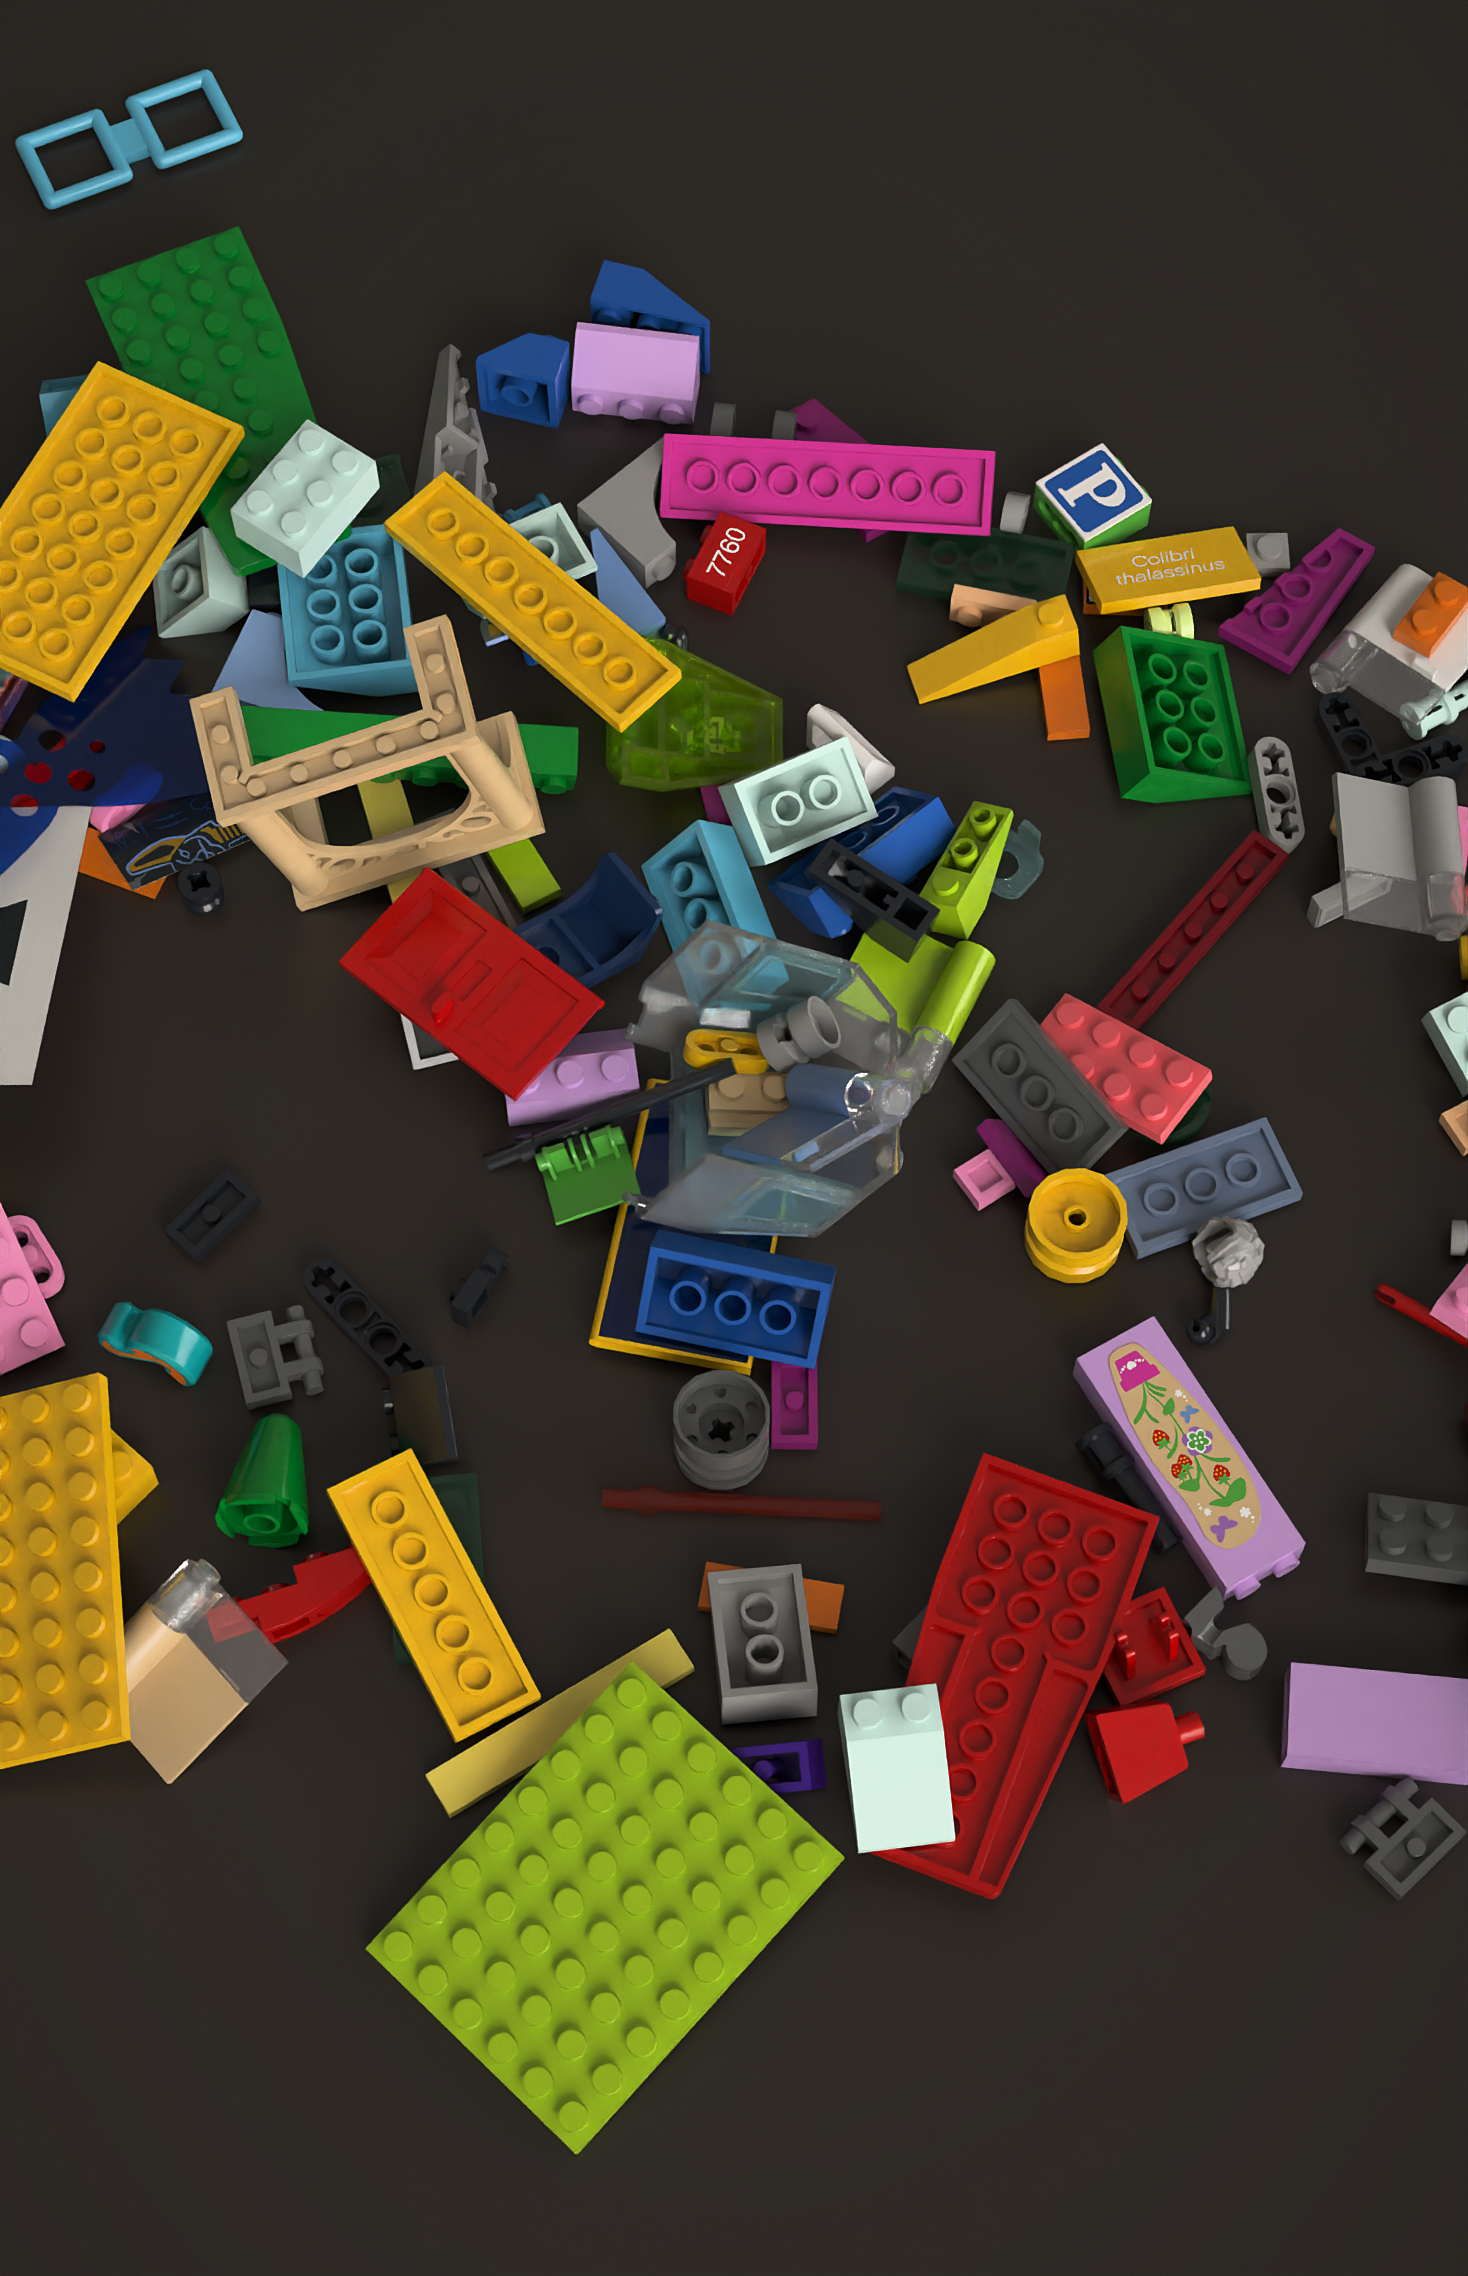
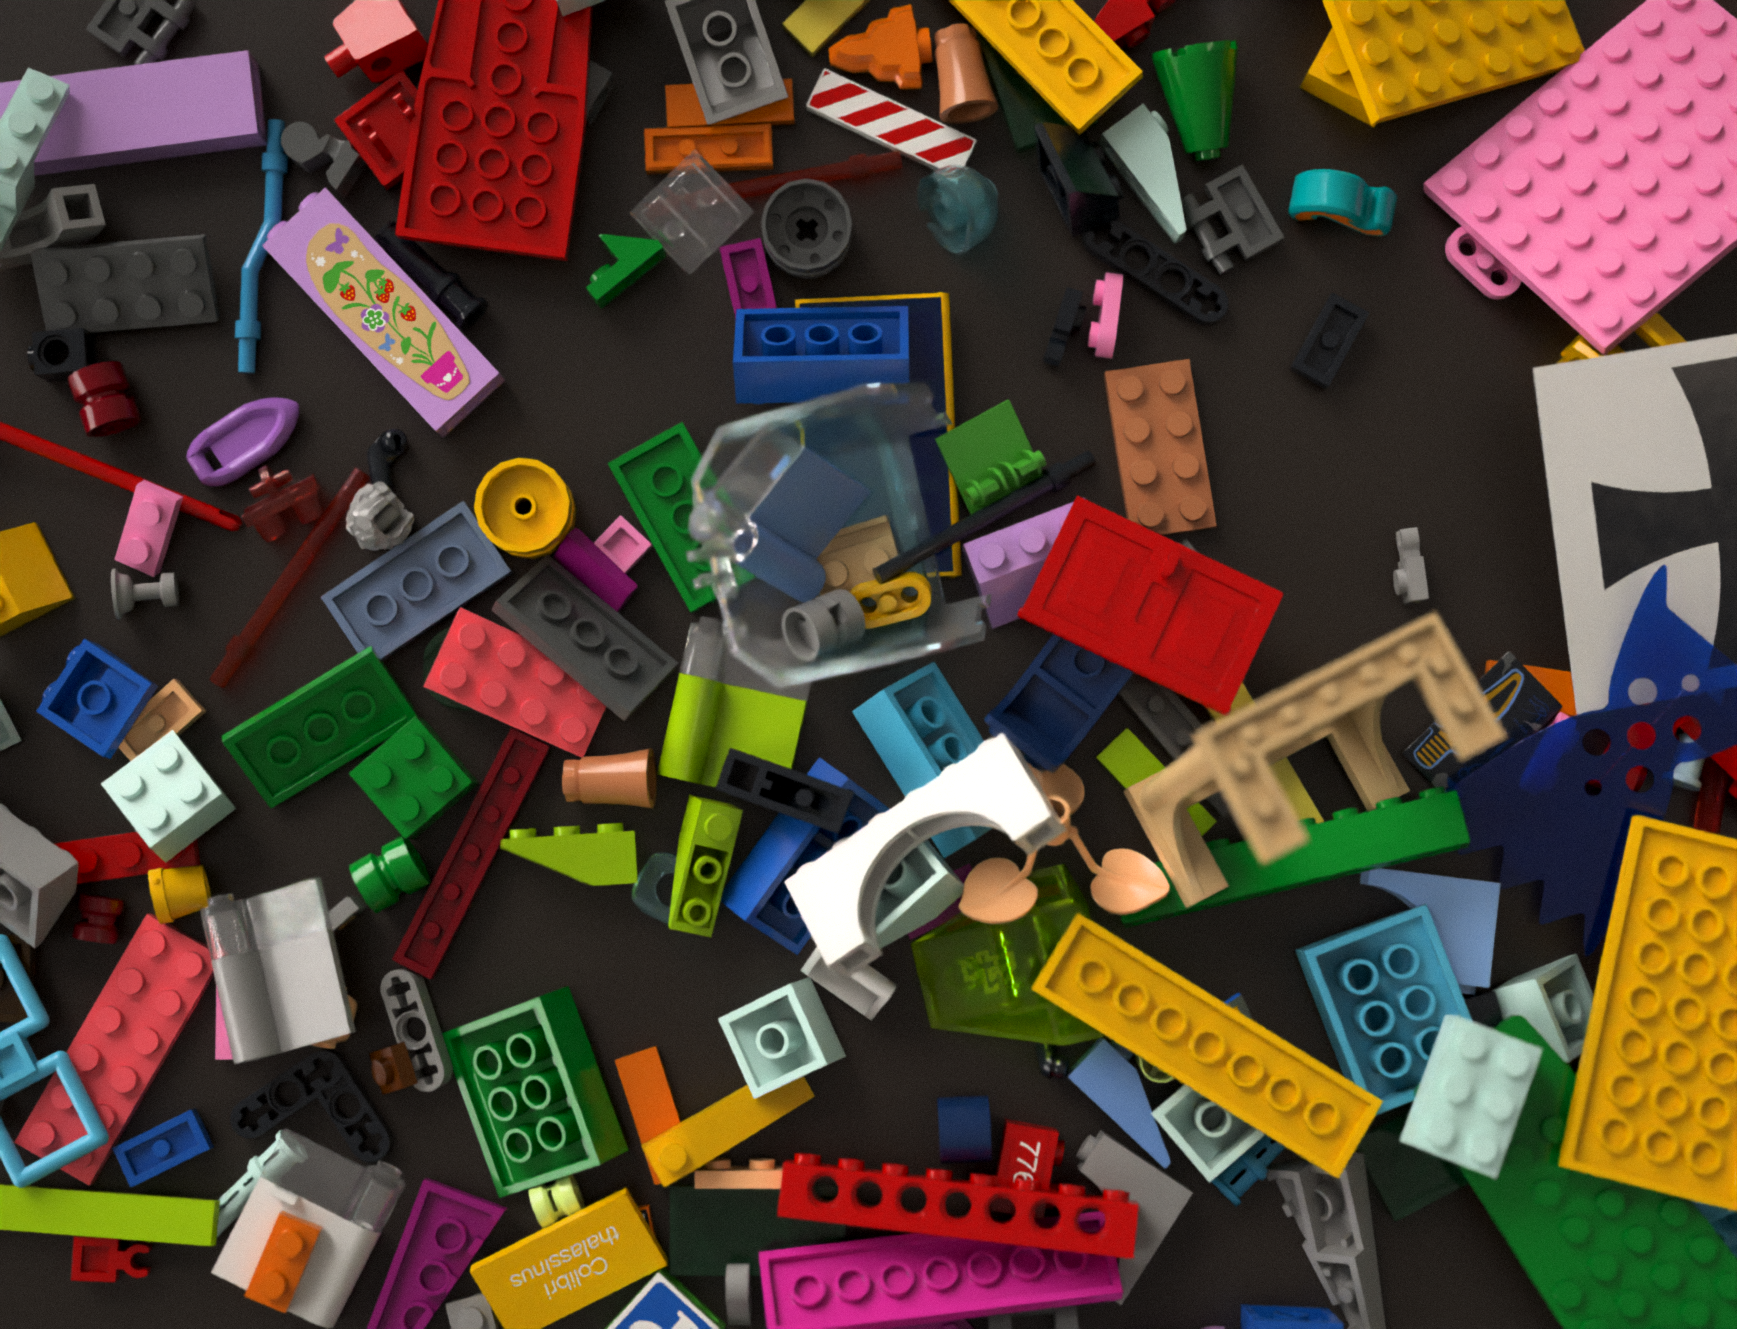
camera: 170 degrees right, 20 degrees up
(203, 980) = (1411, 575): none -> light grey plate
(343, 1427) = (1145, 160): none -> light aqua slope
(414, 1156) = (1160, 447): none -> nougat plate
(424, 1304) = (1107, 296): none -> bright pink plate
(515, 1560) = (962, 76): none -> nougat plant
(552, 1424) = (960, 205): none -> clear light blue cylinder
(586, 1612) = (887, 50): none -> orange rock
(603, 1537) = (889, 122): none -> tile
(673, 835) = (844, 885): none -> white arch
(687, 770) = (1123, 885): none -> light nougat plant
(773, 601) = (964, 1129): none -> dark blue piece
(782, 512) = (801, 1201): none -> red brick
(819, 1556) = (721, 146): none -> orange tile
(838, 1483) = (691, 212): none -> clear slope
(912, 1452) = (633, 260): none -> green slope
(922, 1207) = (660, 492): none -> green plate
(924, 709) = (781, 1037): none -> light aqua slope
(1040, 965) = (612, 779): none -> nougat plant
(1079, 899) = (588, 858): none -> lime slope
(1236, 1006) = (414, 778): none -> green brick
(1279, 1641) = (248, 328): none -> dark azure bar
(1283, 925) = (387, 875): none -> green wheel
(1304, 764) = (392, 1068): none -> reddish brown plate
(1323, 1070) = (319, 727): none -> green plate
(1329, 1296) = (265, 513): none -> clear red hips
(1359, 1368) = (243, 439): none -> medium lavender piece
(1390, 1172) = (241, 647): none -> clear red bar

